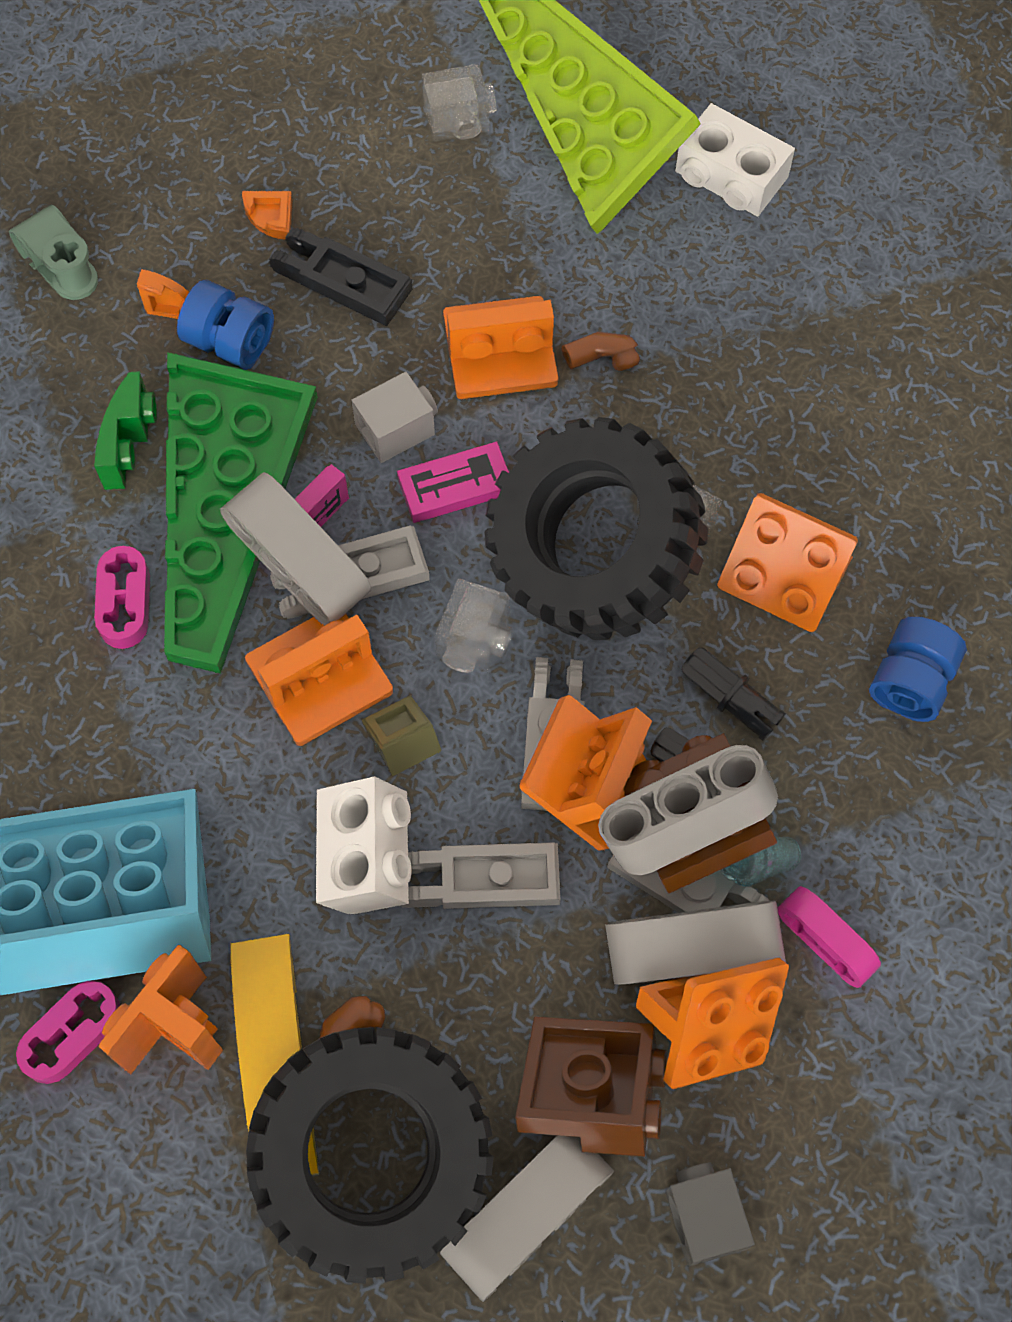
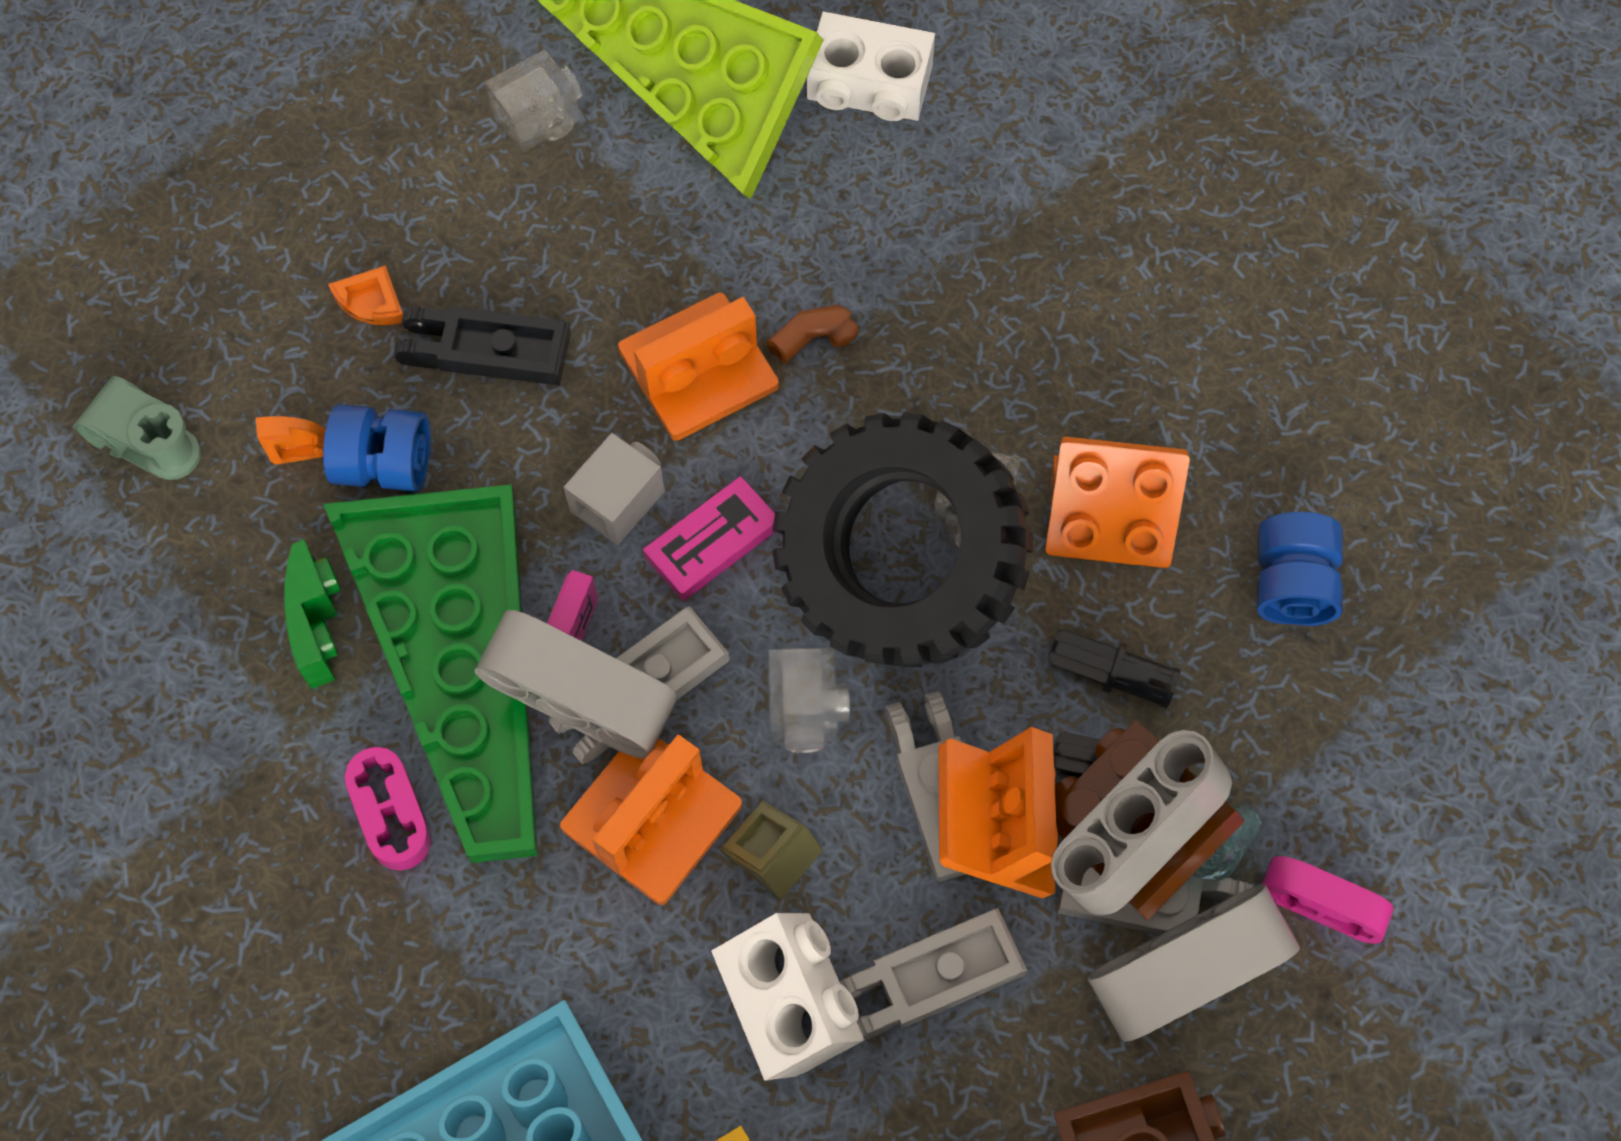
camera: 20 degrees left, 0 degrees up
(715, 1019) = (1251, 1039): orange bracket -> none

